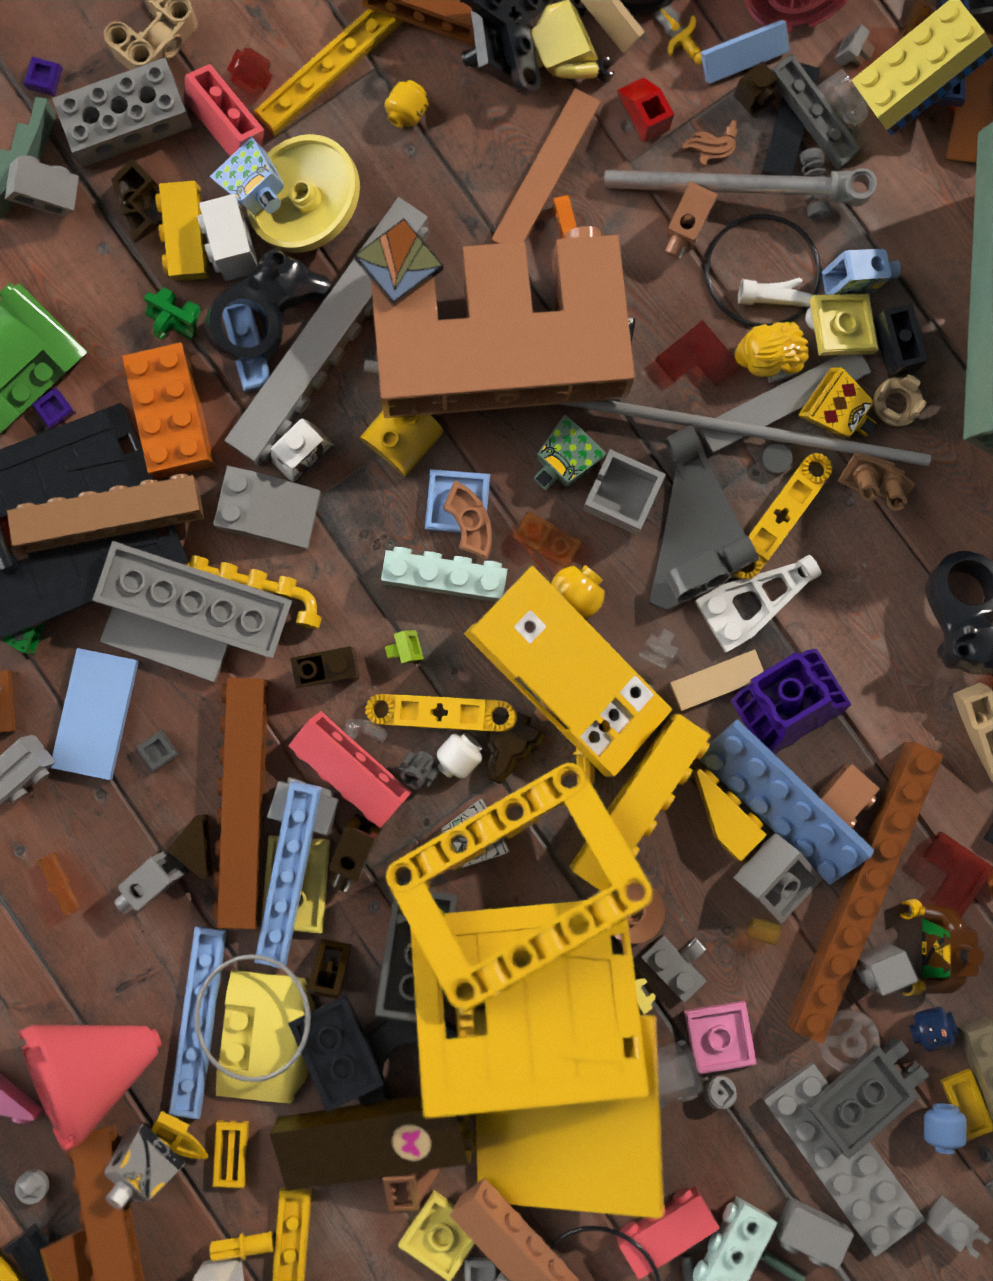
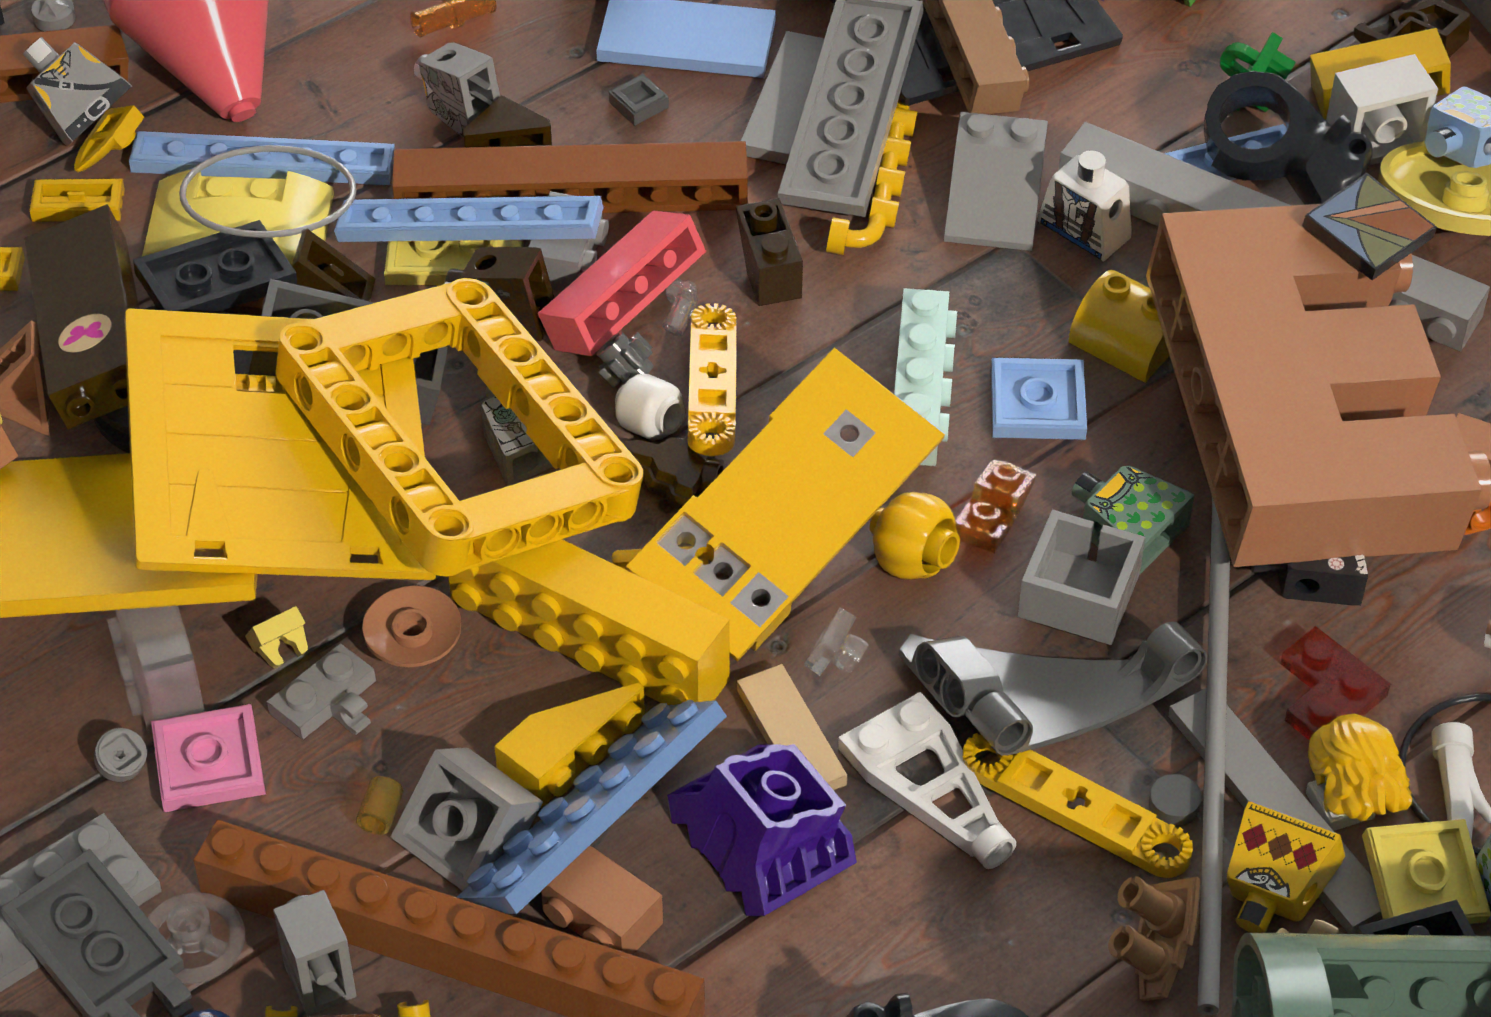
camera: 90 degrees right, 35 degrees down
(168, 411) = (1119, 74): orange brick -> none
(406, 647) = (807, 340): lime tile -> none
(472, 519) = (1010, 404): nougat tile -> none

